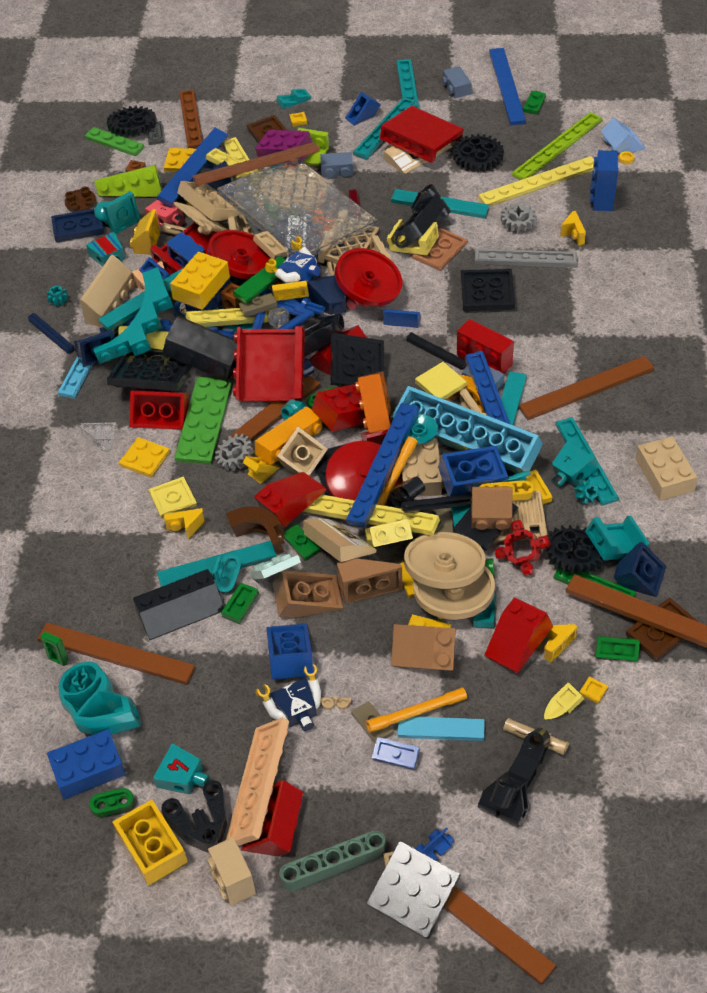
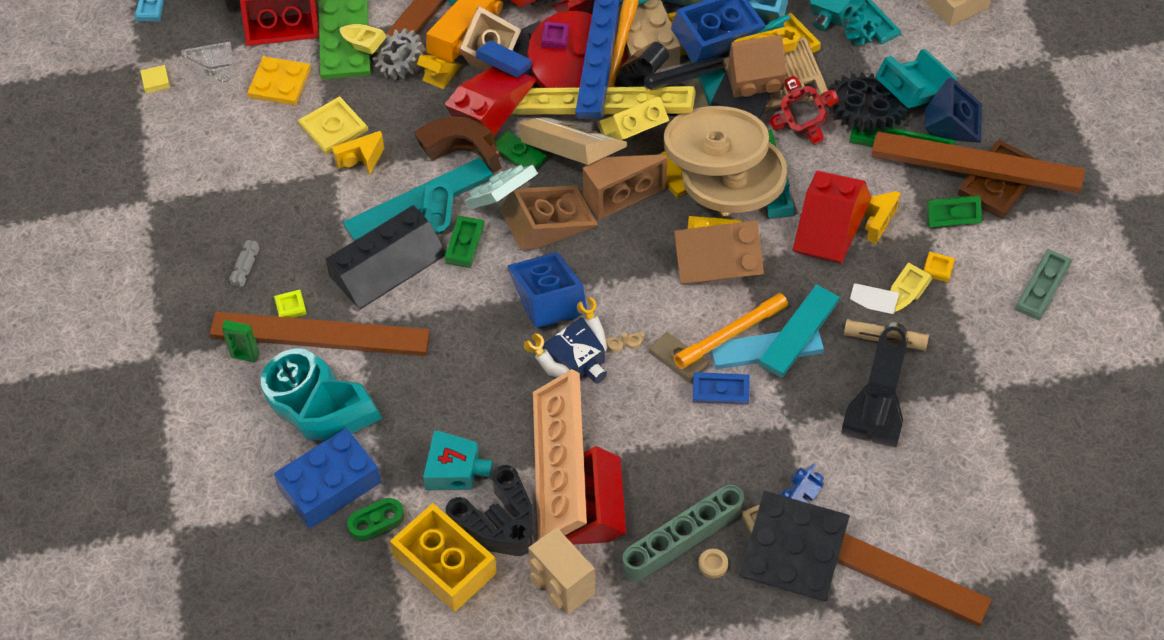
camera: 15 degrees left, 5 degrees up
(57, 441) = (155, 79): none -> light yellow tile
(78, 589) = (244, 263): none -> light grey axle
(101, 627) = (290, 304): none -> neon yellow tile
(211, 435) = (363, 37): none -> light yellow plate
(306, 469) = (503, 58): none -> blue tile
(348, 458) = (555, 35): none -> magenta tile
(350, 889) = (713, 563): none -> tan tile
(468, 720) = (799, 331): none -> teal tile
(536, 705) = (874, 298): none -> white sticker
(672, 720) = (1043, 284): none -> sand green tile

